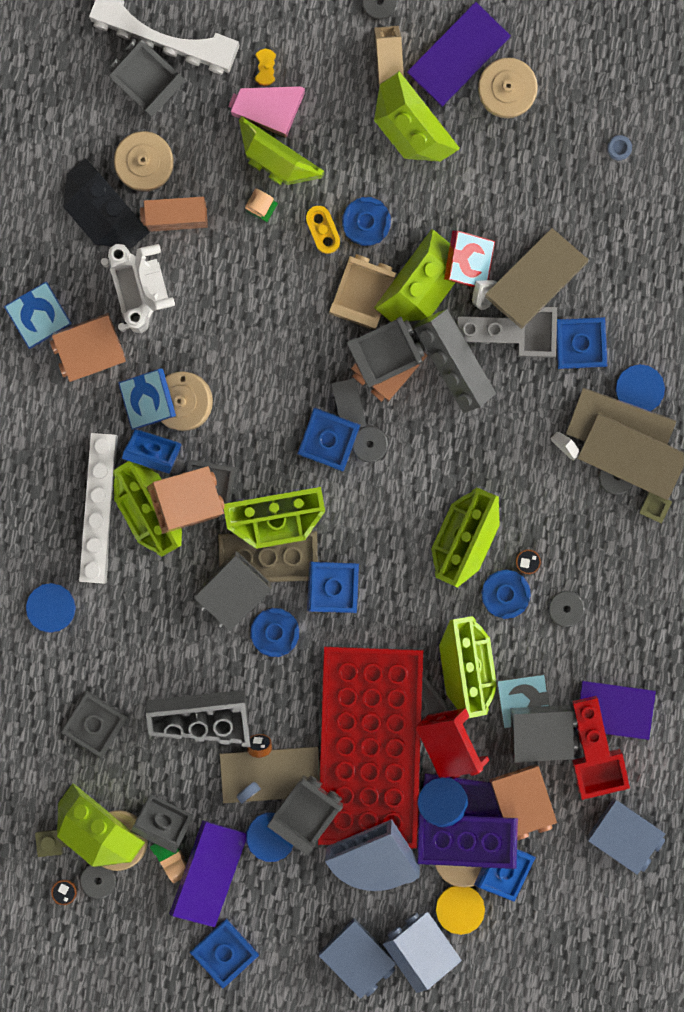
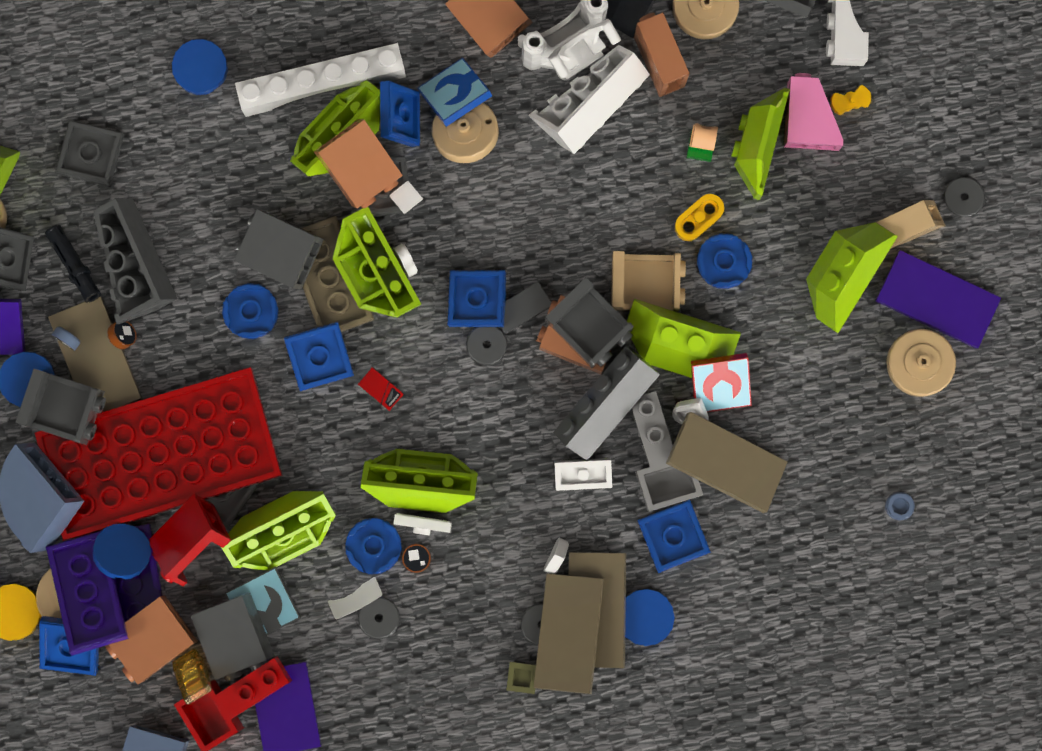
camera: 75 degrees right, 5 degrees down
(192, 286) = (591, 99): none -> white wedge
(196, 765) = (77, 271): none -> black pin
(224, 469) = (406, 197): none -> white sticker
(276, 488) = (405, 260): none -> white tile
(376, 545) = (380, 389): none -> red sticker
(502, 547) = (422, 524): none -> white plate
(506, 400) = (583, 474): none -> white plate
(544, 615) = (361, 597): none -> white sticker
(561, 777) = (192, 676): none -> clear yellow slope

